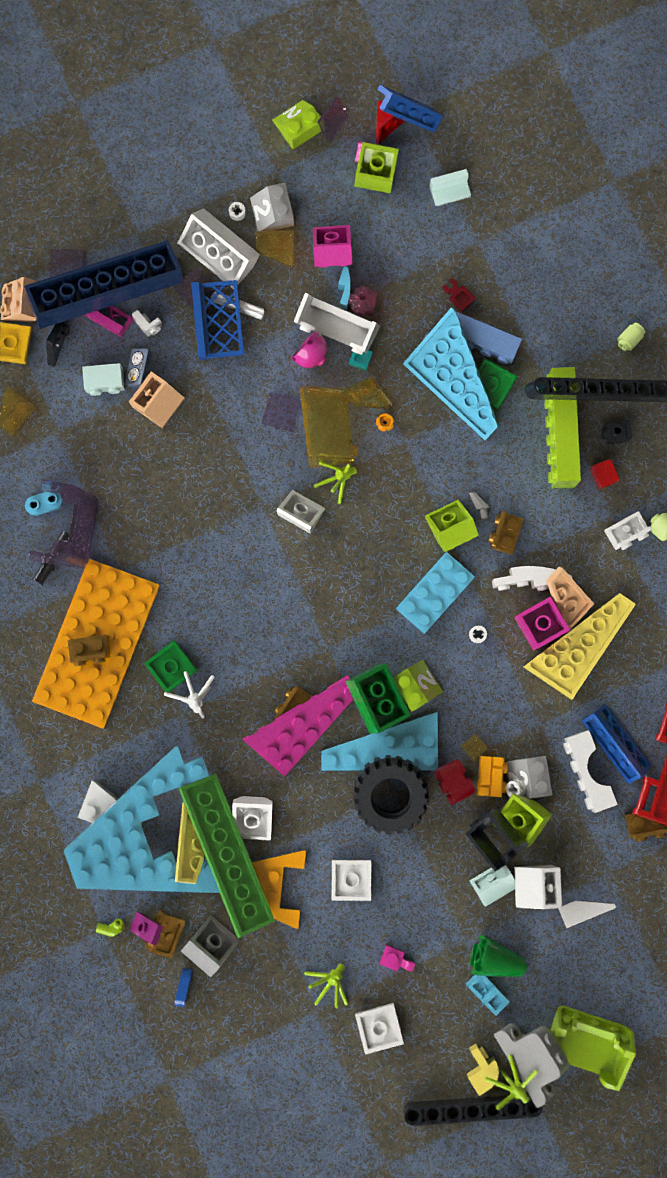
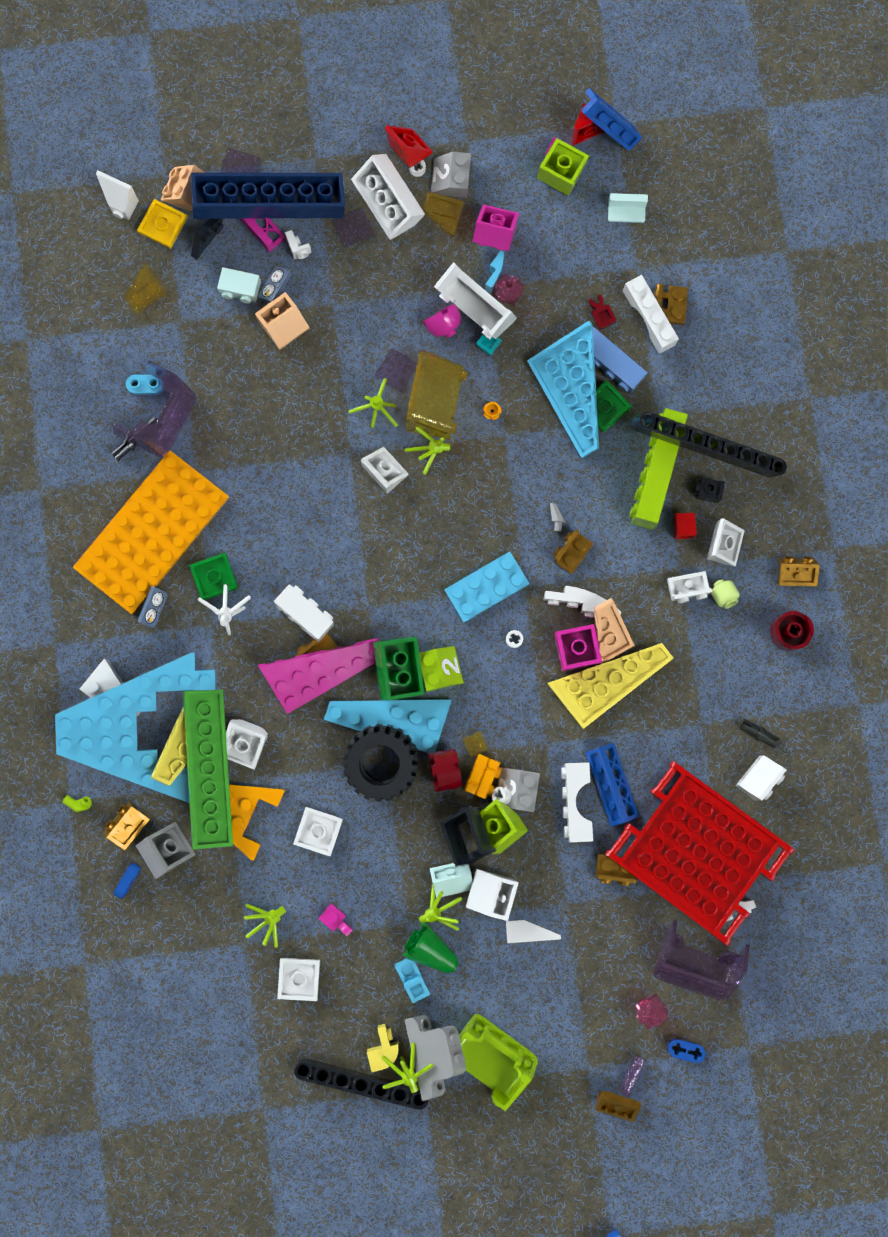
camera: 10 degrees right, 0 degrees up
(88, 649) = (141, 534): pearl gold bracket -> none
(122, 715) = (152, 607): none -> slope
(146, 928) = (110, 814): magenta plate -> none
(201, 325) = (348, 260): blue fence -> none
(221, 193) = (407, 144): none -> red slope
(245, 308) = (388, 255): white axle -> none
(270, 674) = (304, 612): none -> white wedge
(274, 451) = (376, 404): none -> lime plant
(298, 123) = (503, 102): lime slope -> none
(333, 119) = (536, 108): piece -> none
(368, 395) = (484, 379): clear yellow wing -> none
(452, 525) = (523, 528): lime slope -> none
(488, 923) = (434, 914): none -> lime plant
(518, 292) = (643, 300): none -> white arch
(526, 264) = (676, 303): none -> pearl gold plate
(631, 337) = (753, 404): yellowish green brick -> none
(648, 478) = (725, 543): none -> white slope

